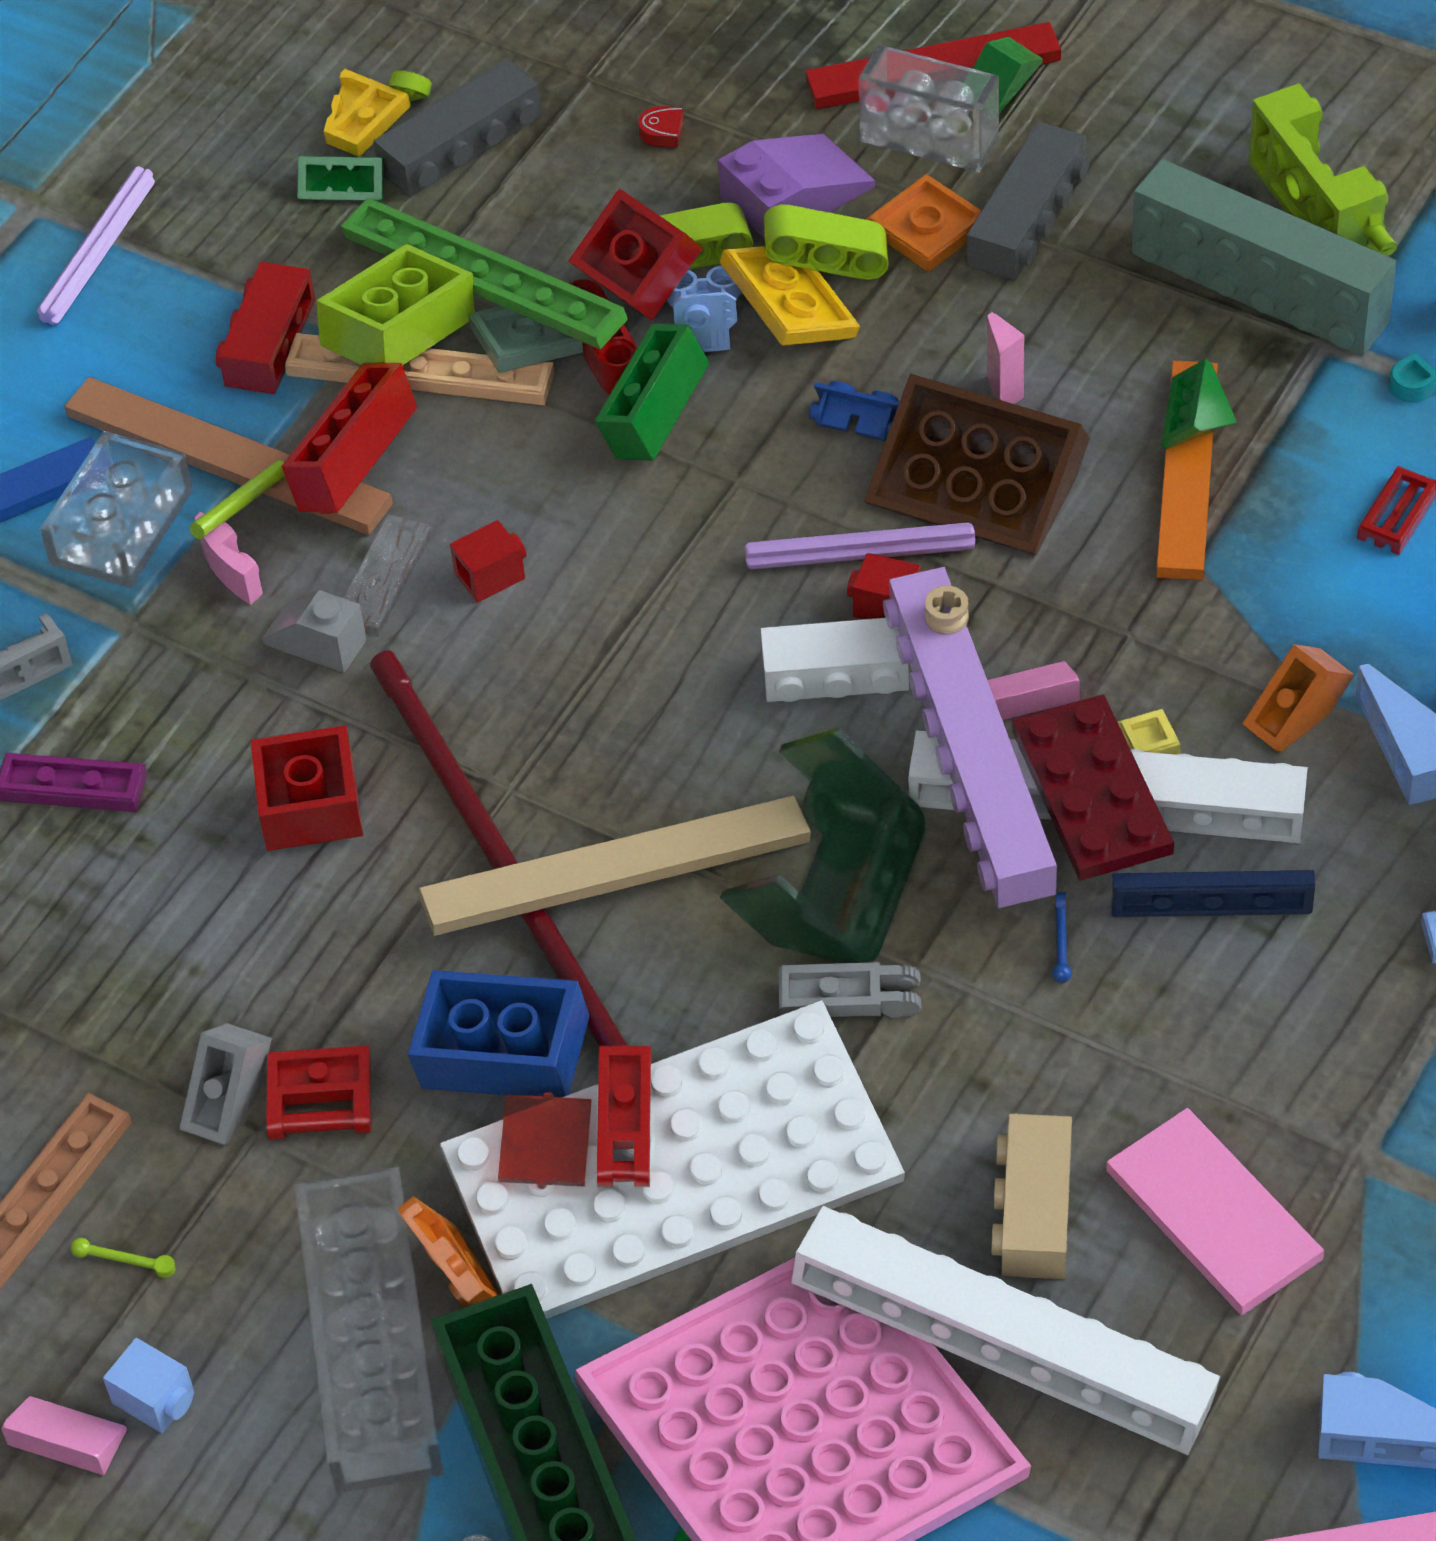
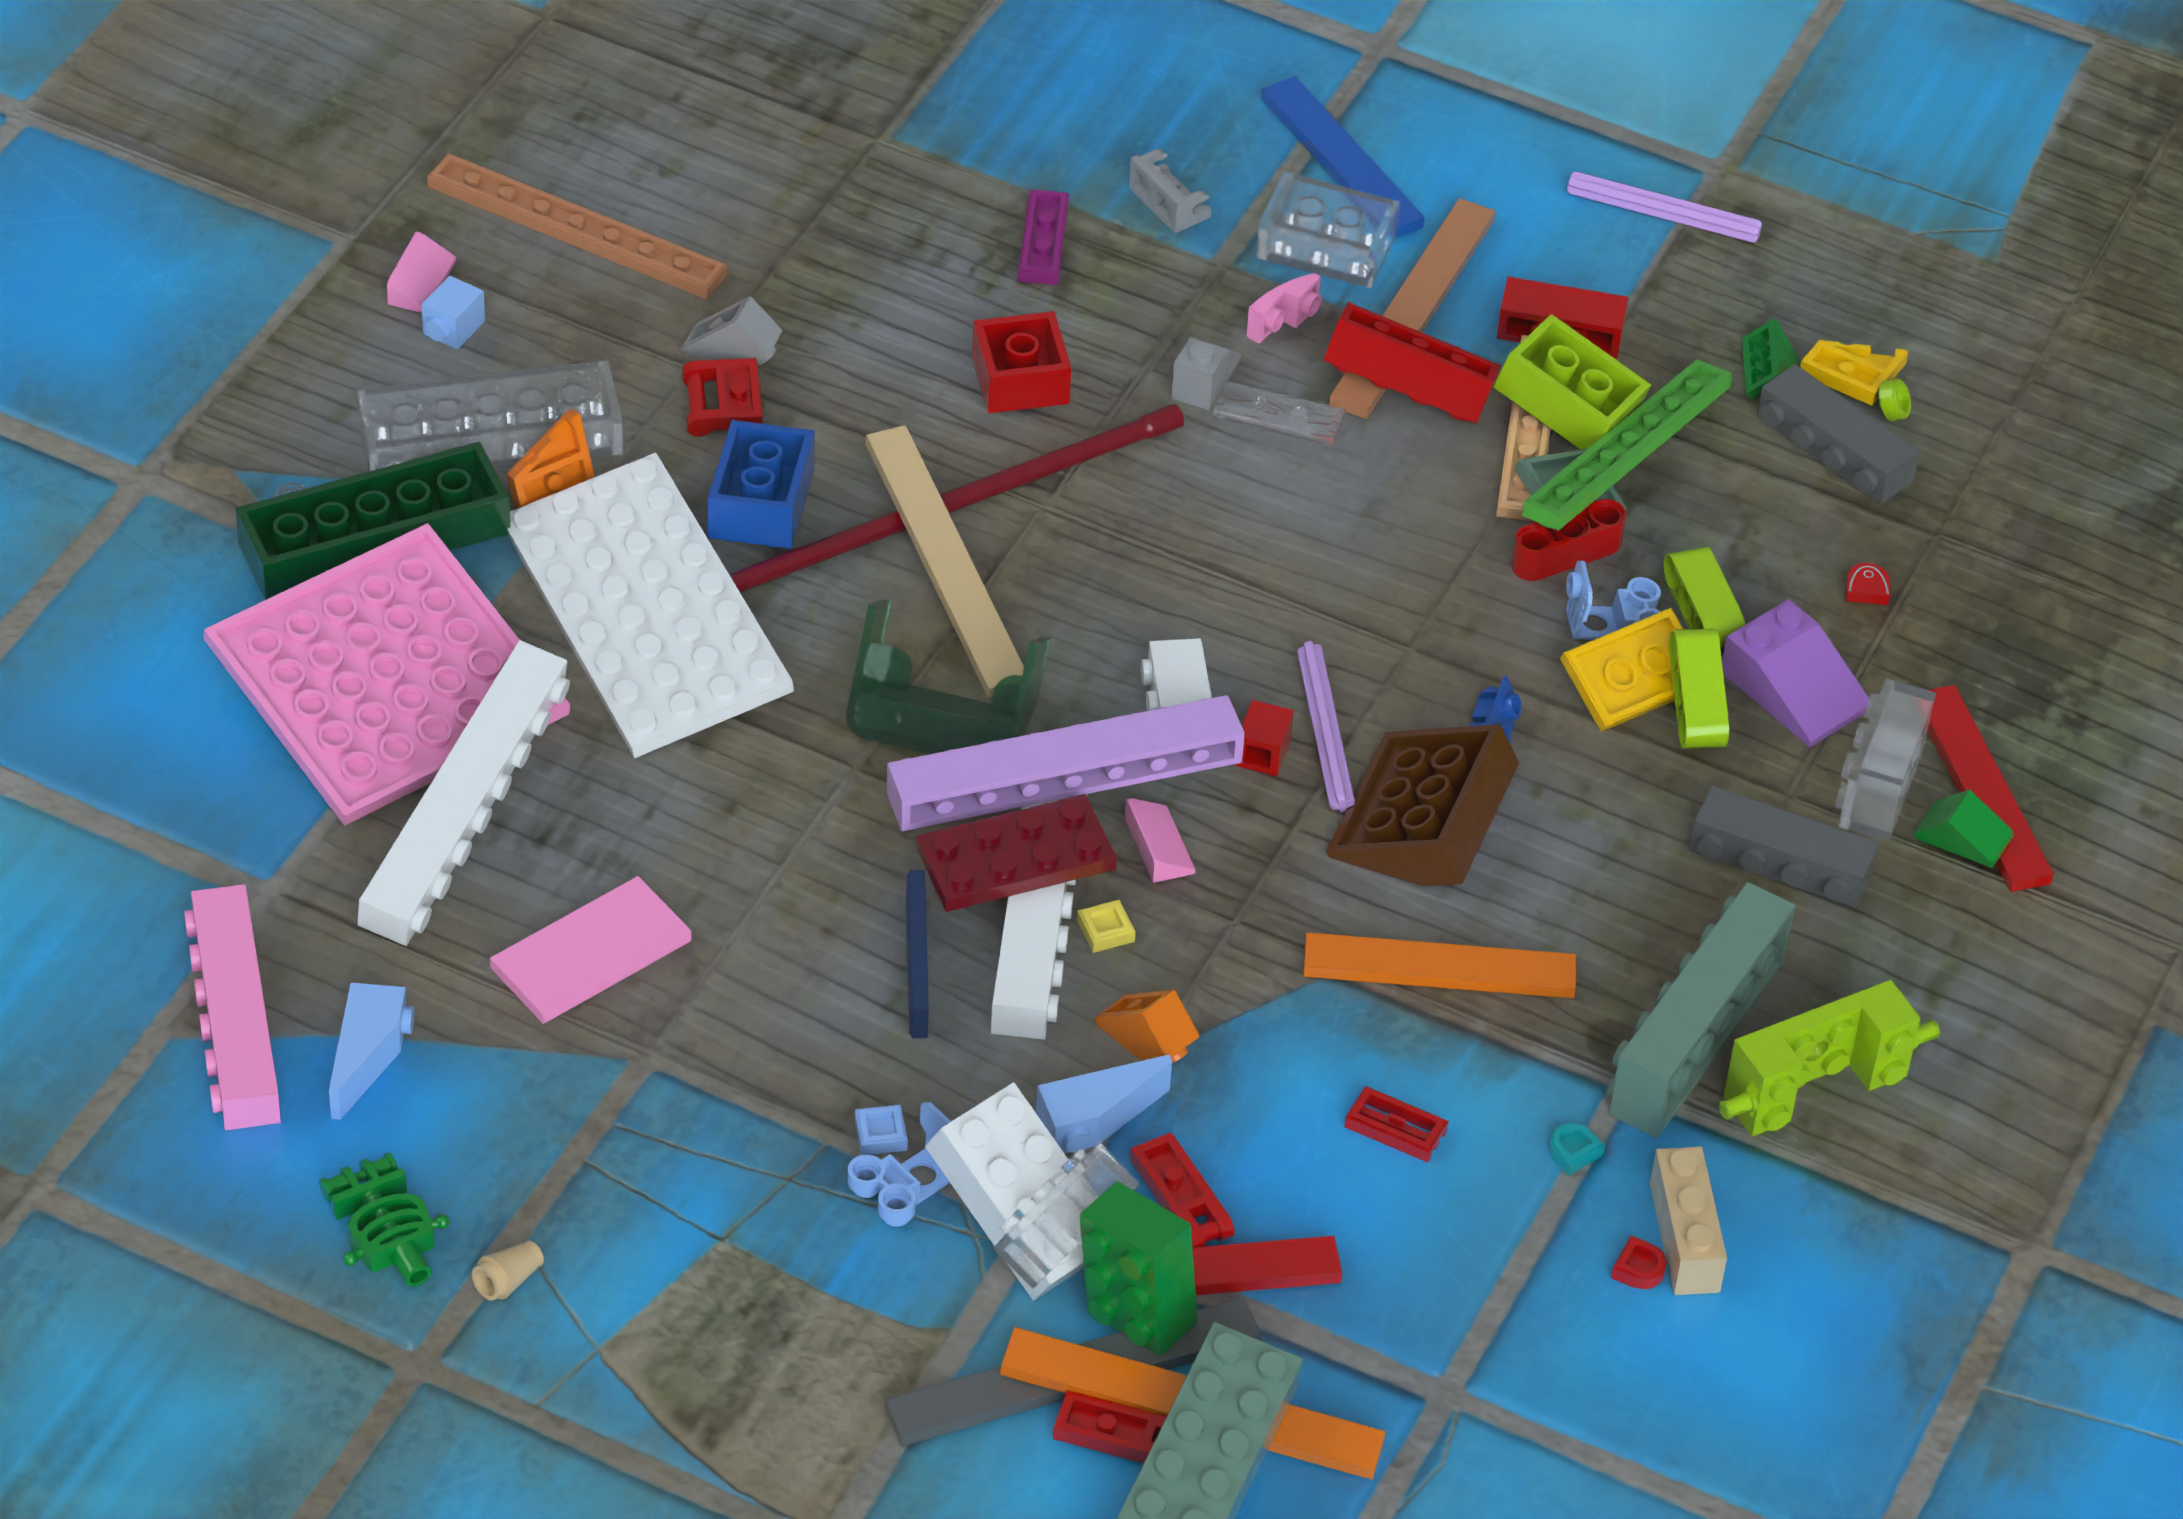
camera: 80 degrees right, 5 degrees down
(163, 1265) = (569, 322): lime hinge -> none
(237, 500) = (1317, 286): lime bar -> none
(488, 560) = (1288, 471): red brick -> none
(545, 1140) = (651, 508): clear red piece -> none
(624, 1114) = (665, 548): red plate -> none
(635, 254) = (1645, 535): red brick -> none
(652, 392) = (1491, 568): green brick -> none
(850, 989) = (818, 709): light grey hinge -> none
(926, 222) = (1759, 773): orange tile -> none
(946, 622) = (1181, 736): tan bush -> none
(1005, 360) = (1539, 808): bright pink slope -> none
(1033, 1196) = (602, 826): tan brick -> none
(1061, 972) = (843, 859): blue hinge -> none
(1195, 405) = (1501, 963): green slope -> none

